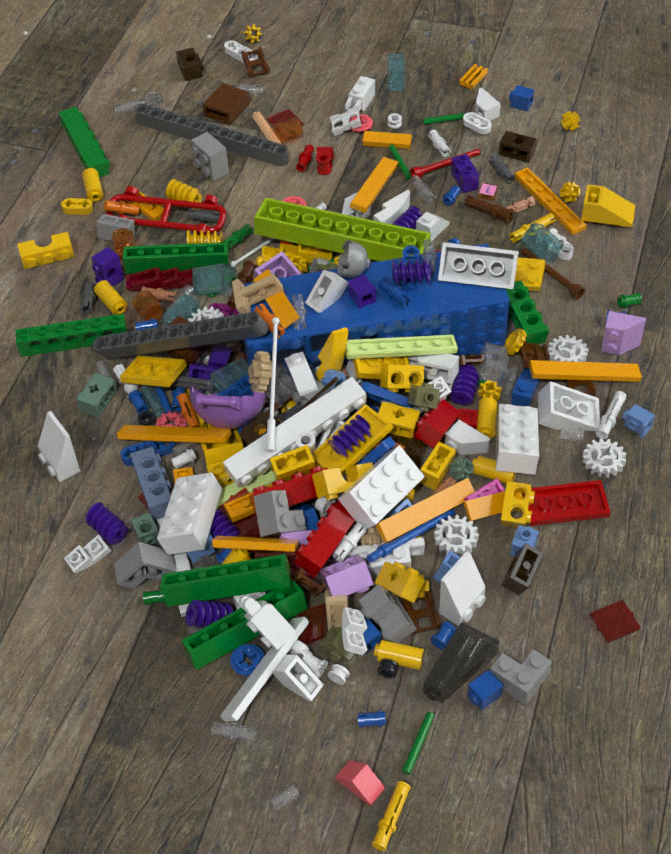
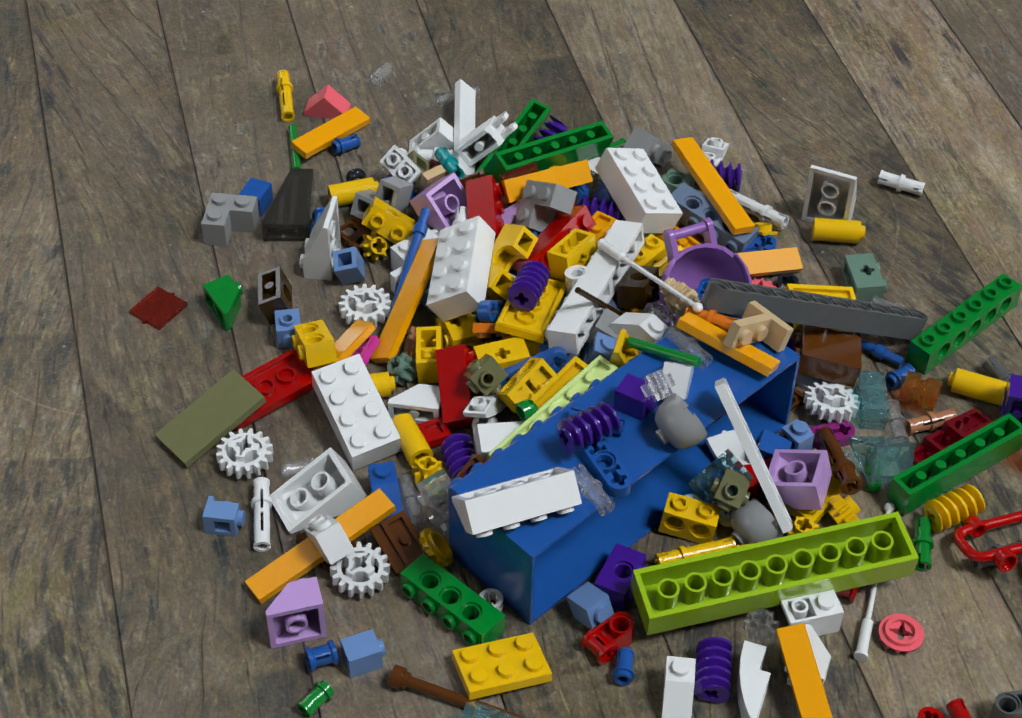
camera: 145 degrees right, 5 degrees down
(81, 443) = (837, 230): none -> yellow brick
(105, 478) = (763, 212): none -> white pin
(117, 461) = (765, 229): none -> yellow plate
(130, 496) = (713, 186): none -> light orange tile
(309, 262) = (754, 455): none -> white tile
(310, 621) = (448, 162): none -> teal pin
(317, 314) = (663, 352): none -> green bar
(348, 270) = (658, 385): none -> clear gear
(377, 738) = (322, 136): none -> light orange tile
(415, 357) = (525, 409): none -> green hinge
(561, 592) = (224, 299): none -> green slope
(583, 357) = (328, 538): none -> white slope
(591, 308) = (362, 653): none -> medium blue brick
(617, 490) = (210, 418): none -> olive tile

